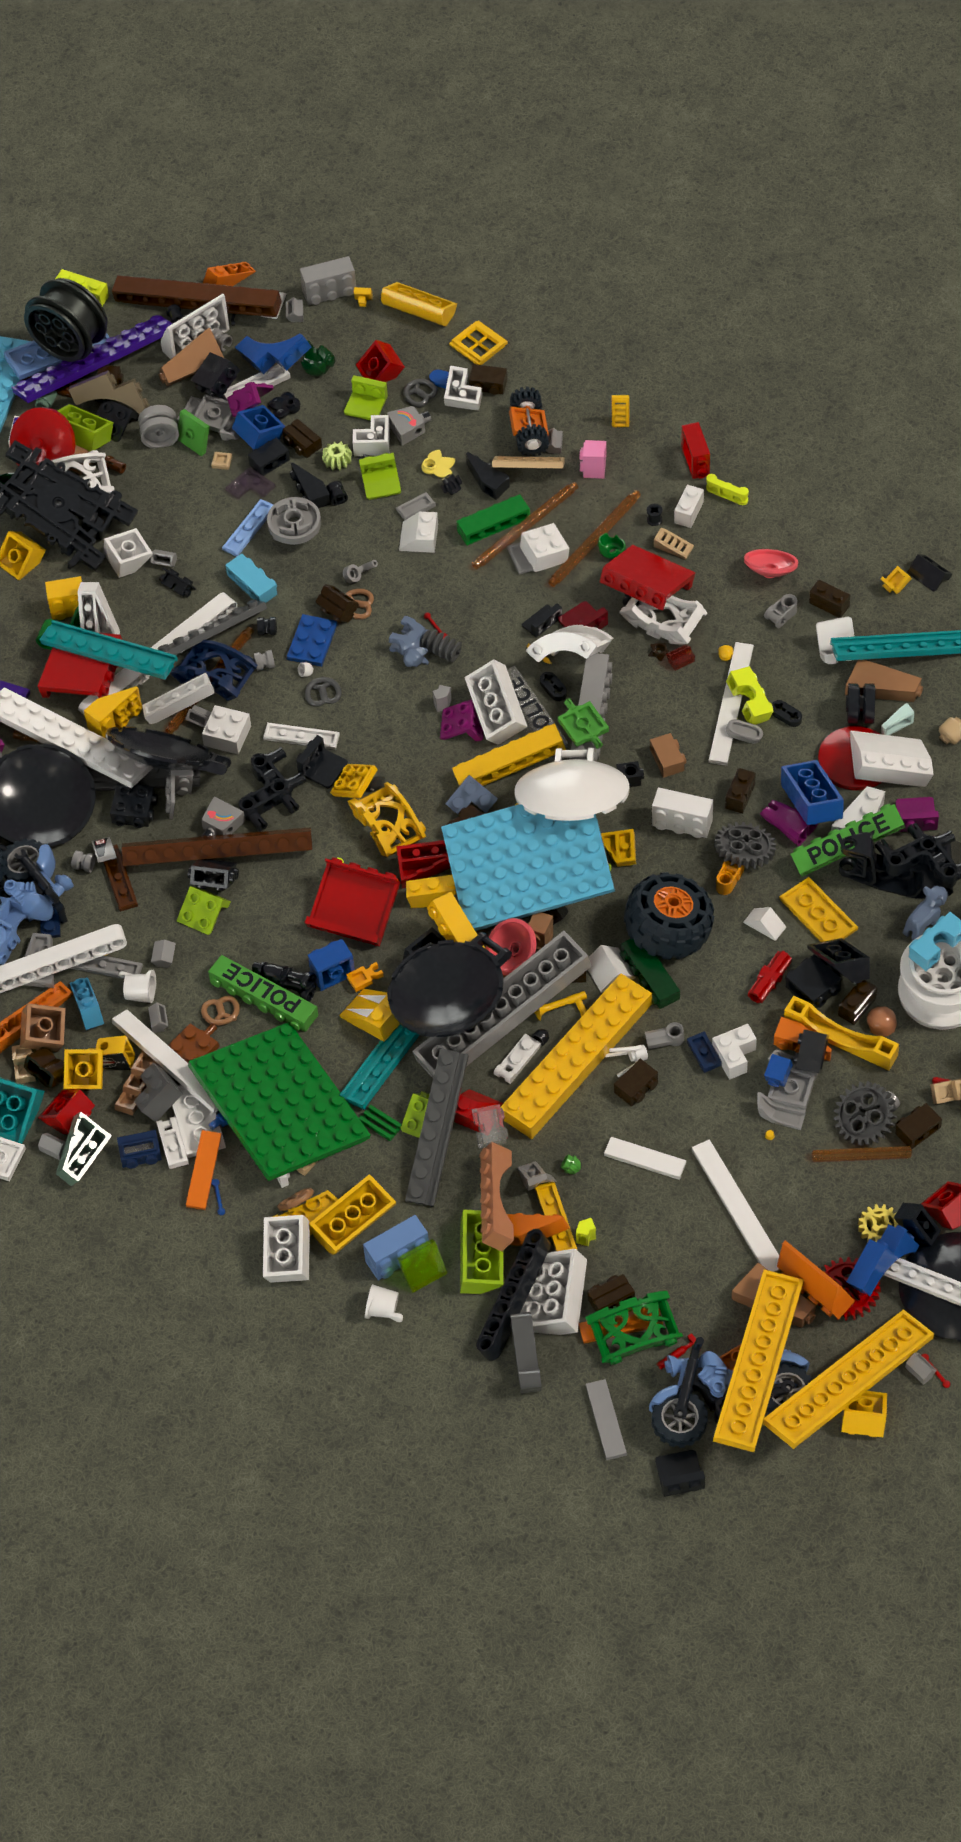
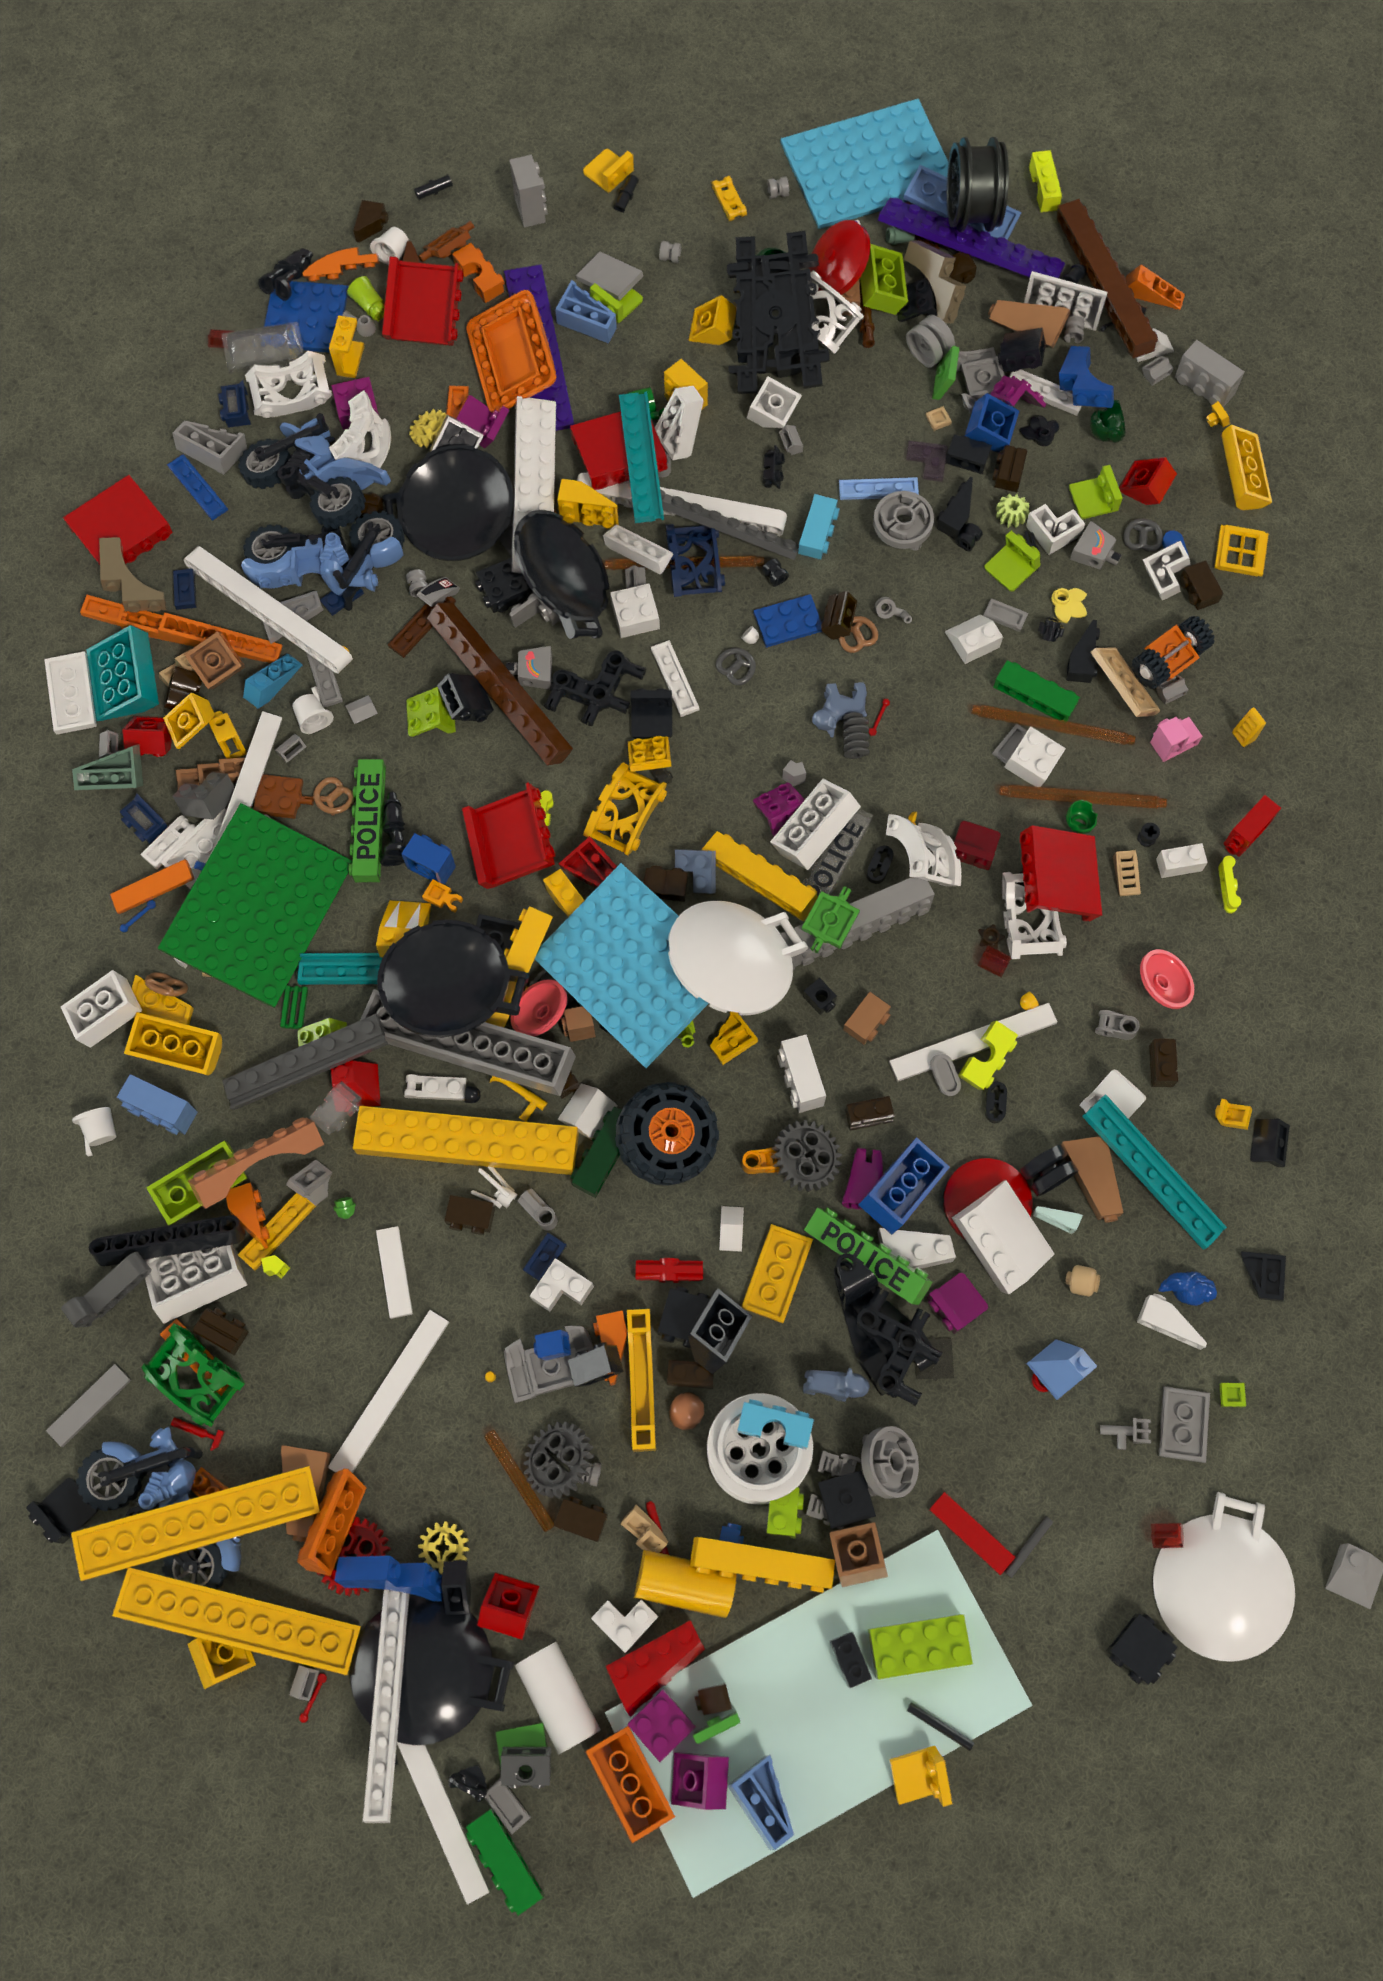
camera: 55 degrees right, 15 degrees up
(264, 660) = (735, 594): light grey wheel -> none
(422, 1265) = (152, 1139): clear neon green tile -> none
(542, 619) = (951, 807): black panel -> none

